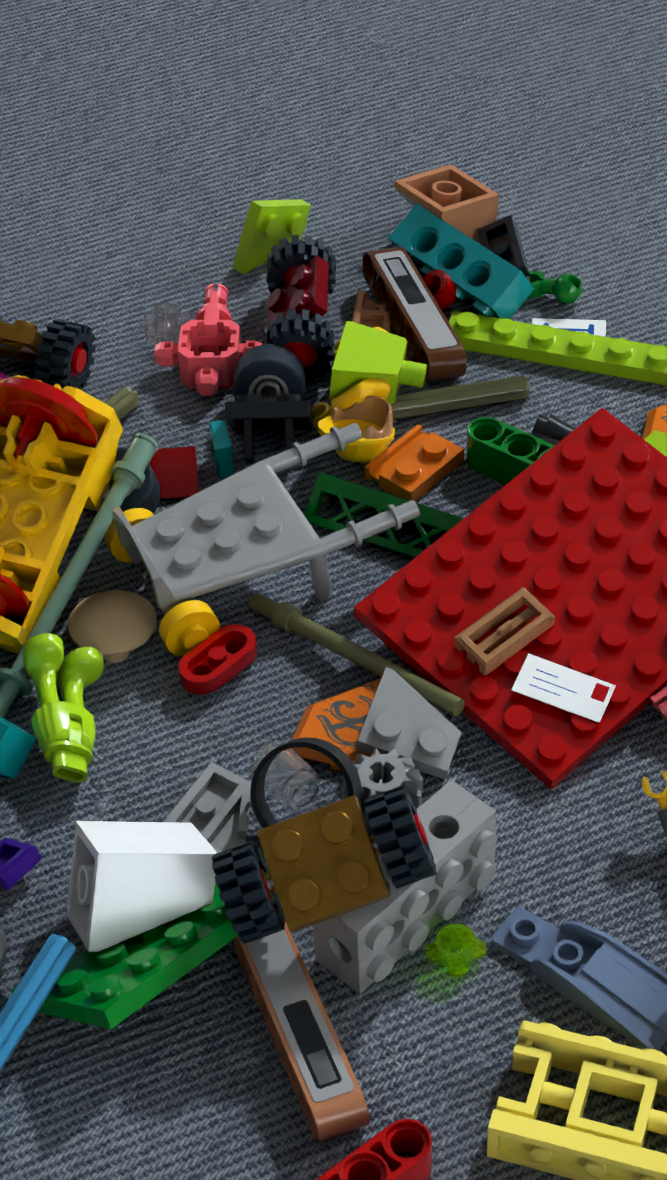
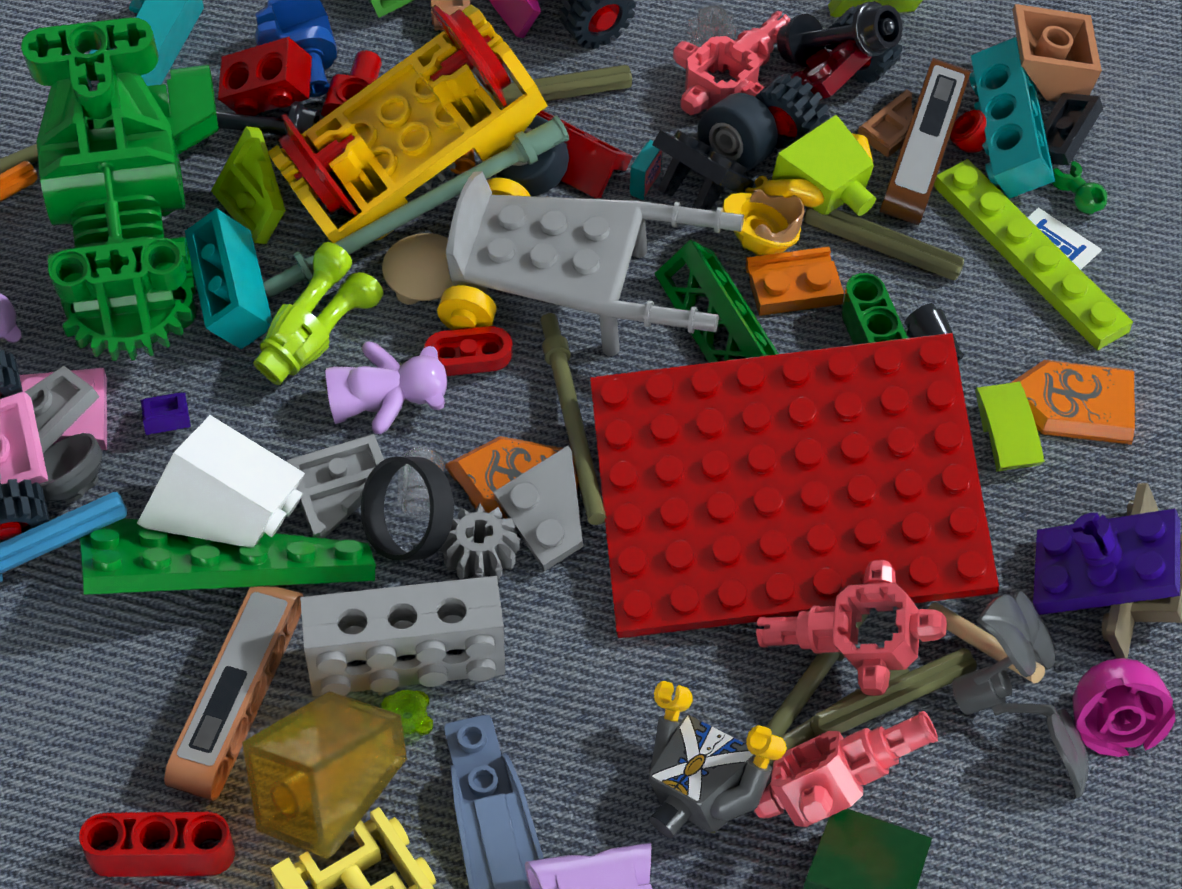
camera: 35 degrees right, 10 degrees up
(178, 721) = (385, 386): none -> lavender piece
(321, 241) = (873, 29): none -> black piece
(322, 864) = (321, 577): plate -> none
(450, 1028) = (322, 770): none -> clear yellow slope
(489, 662) = (685, 494): medium nougat tile -> none
(563, 688) = (689, 560): white sticker -> none

